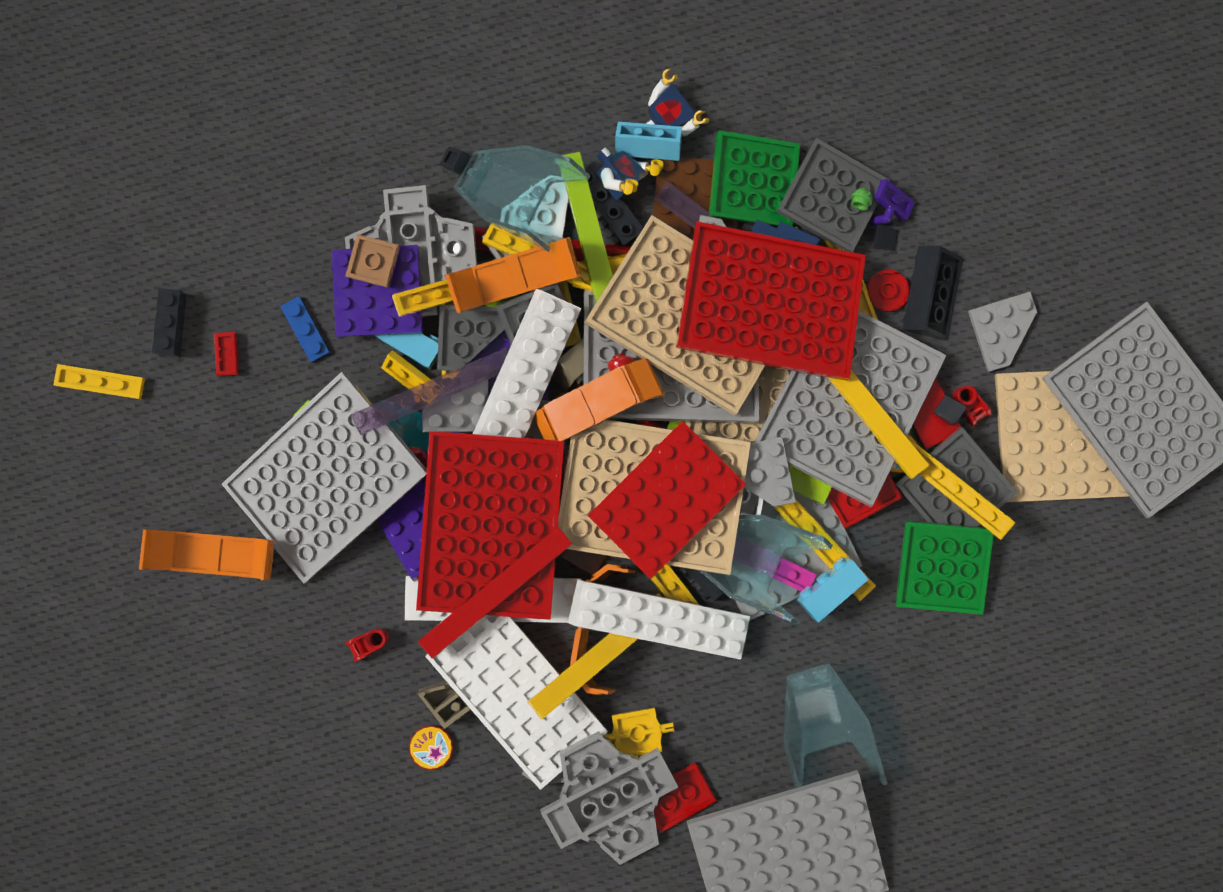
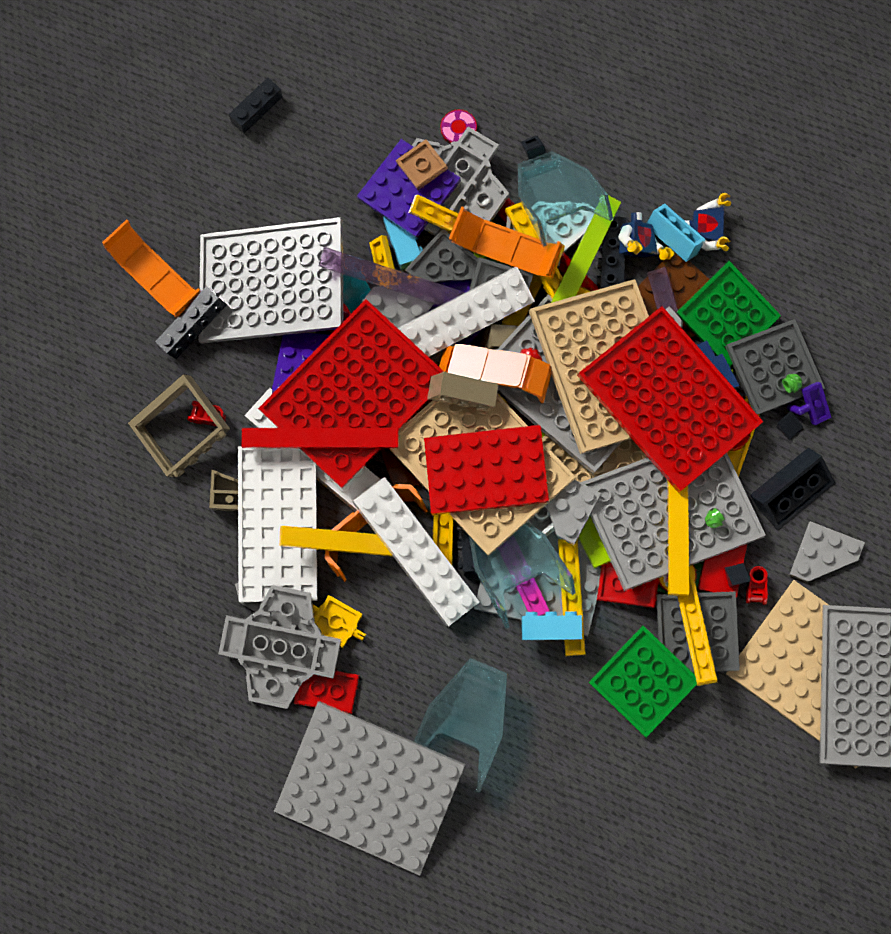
camera: 50 degrees right, 10 degrees down
(99, 381) = (178, 108): yellow plate -> none
(226, 354) = (275, 154): red plate -> none
(283, 574) = (191, 323): none -> brick
(305, 329) = (340, 179): blue plate -> none
(345, 712) = (160, 403): none -> dark tan window
(368, 195) = (455, 124): none -> tile
(431, 747) = (189, 518): tile -> none
(589, 447) = (463, 391): none -> dark tan wedge
(886, 297) = (761, 469): red tile -> none
(895, 378) = (714, 518): none -> bright green plate

